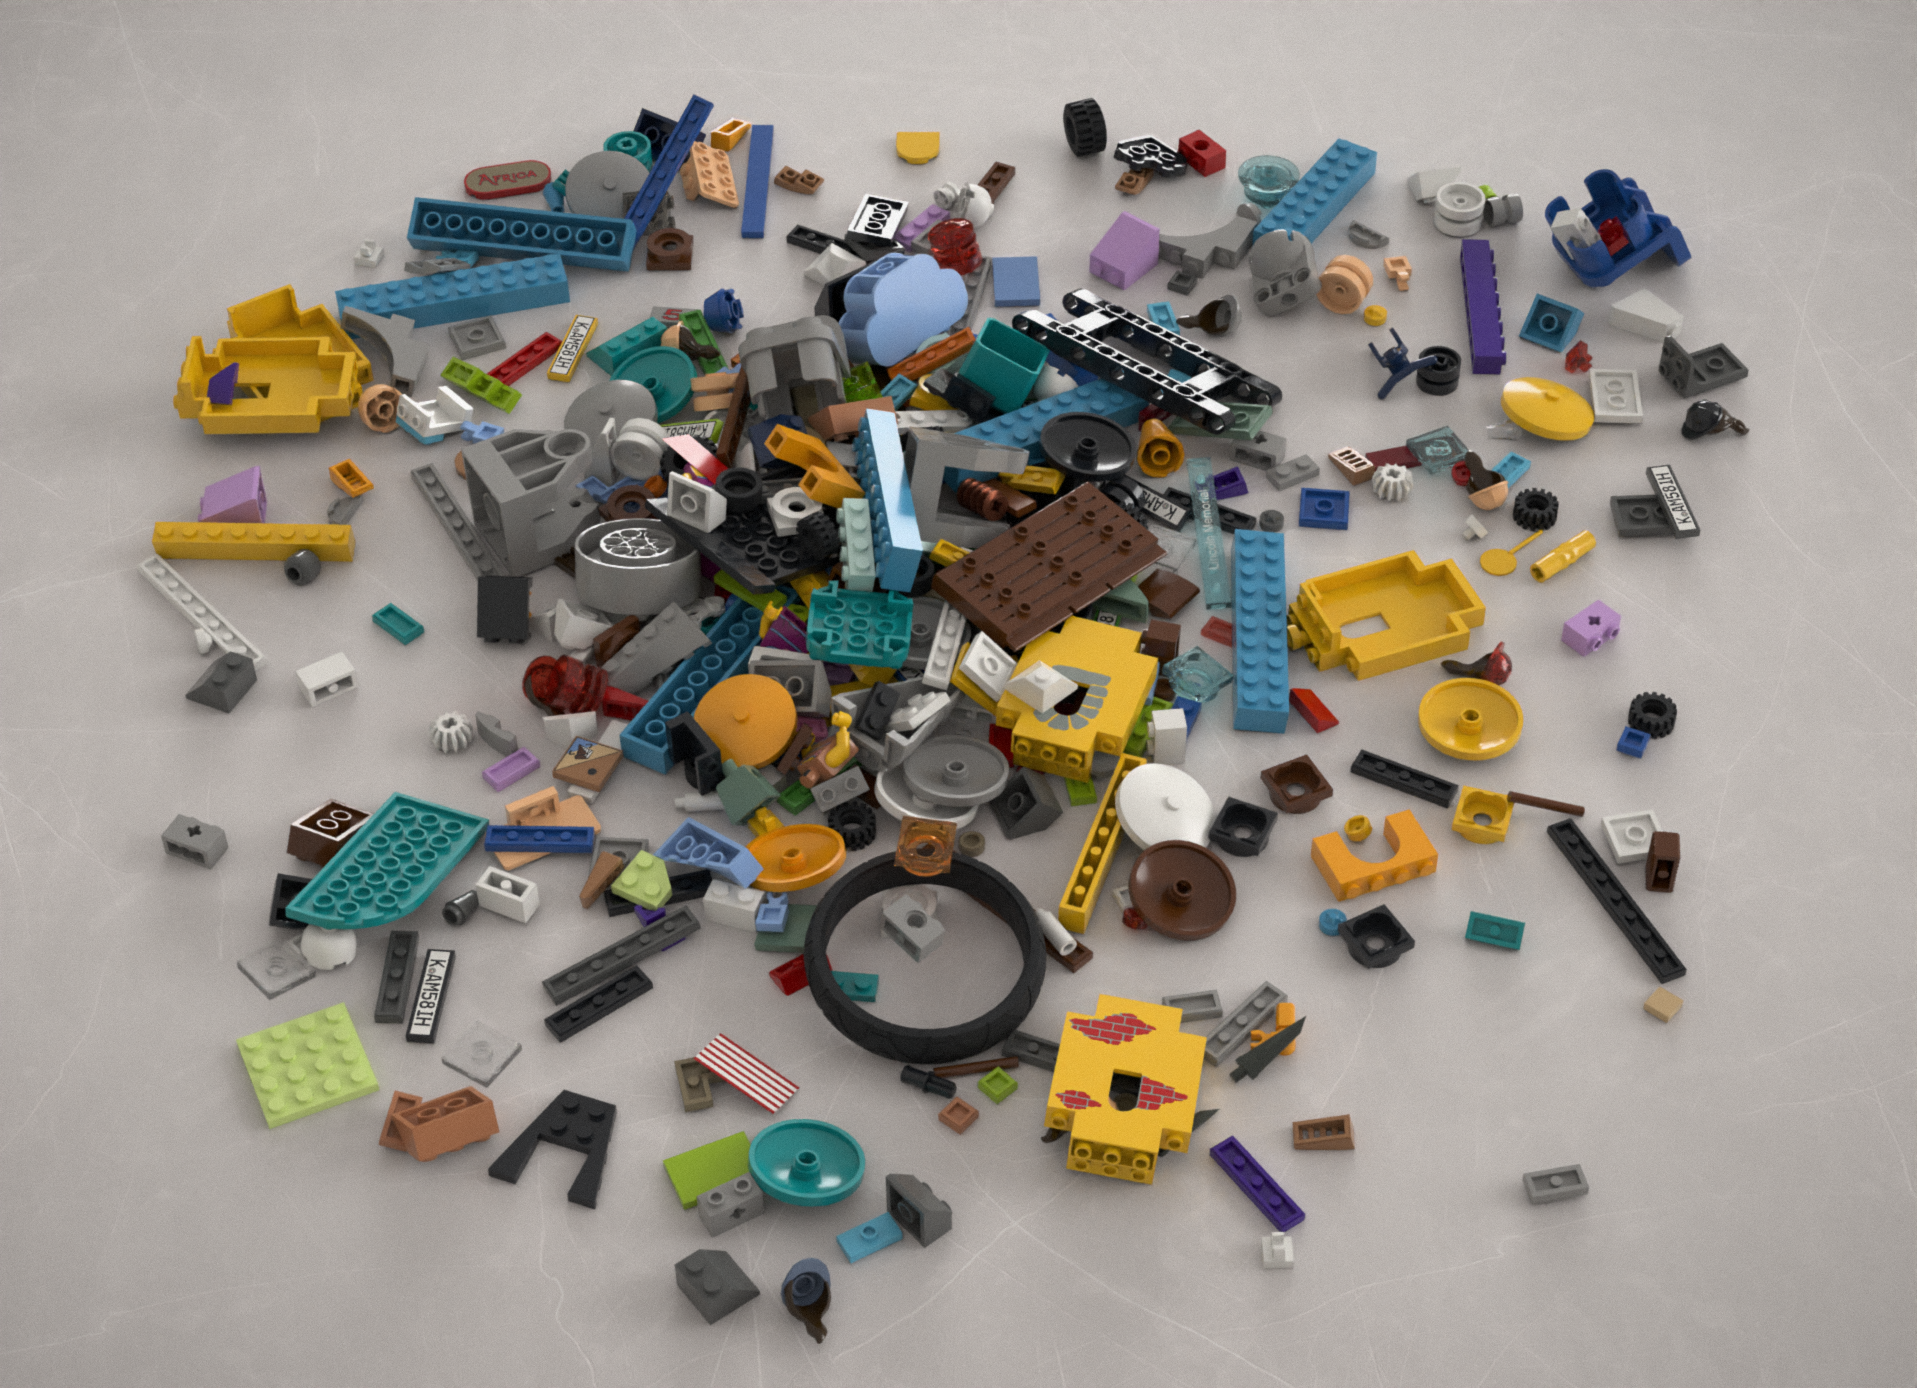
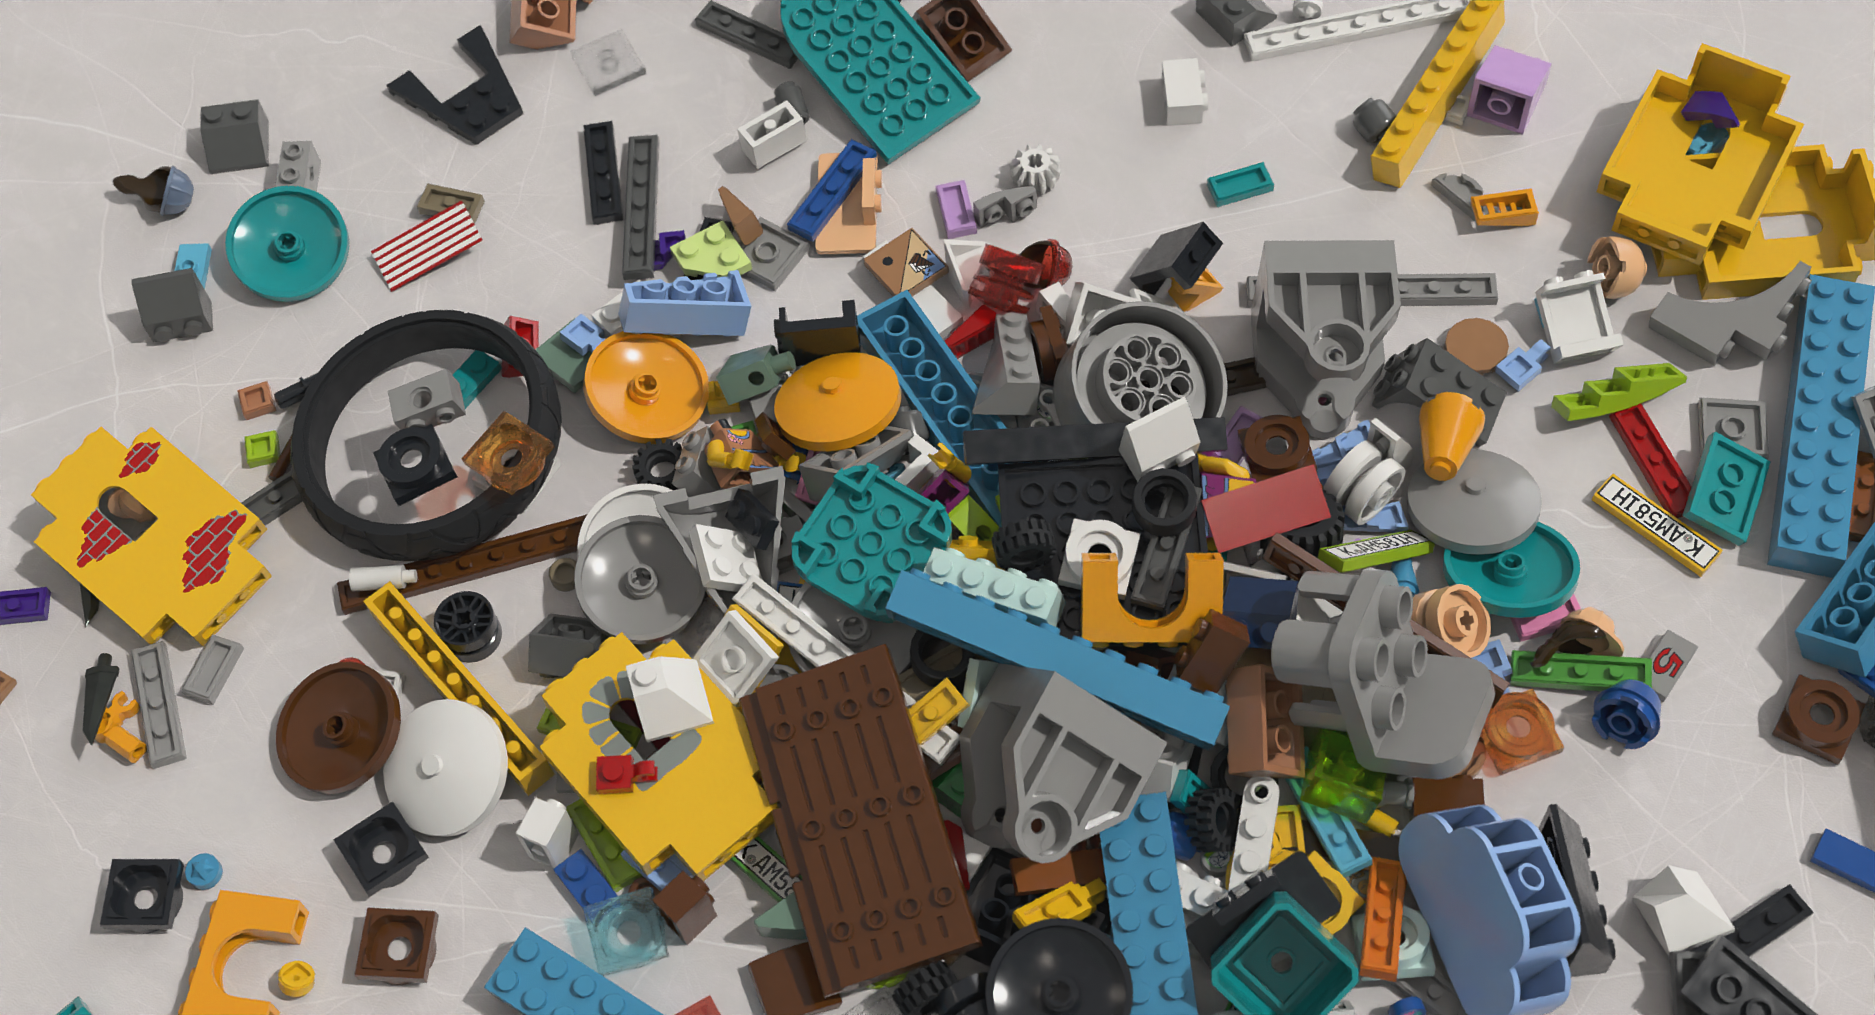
camera: 125 degrees right, 15 degrees up
(430, 996) = (707, 50): tile -> none
(530, 321) = (1726, 488): none -> teal plate
(587, 421) = (1448, 433): none -> light orange cone
(618, 349) = (1623, 581): teal slope -> none
(707, 1167) = (356, 182): lime tile -> none
(832, 434) = (1212, 651): none -> reddish brown brick
(969, 926) = (429, 474): none -> black piece
(1052, 863) = (468, 626): none -> black wheel
(1109, 687) = (619, 772): none -> red plate

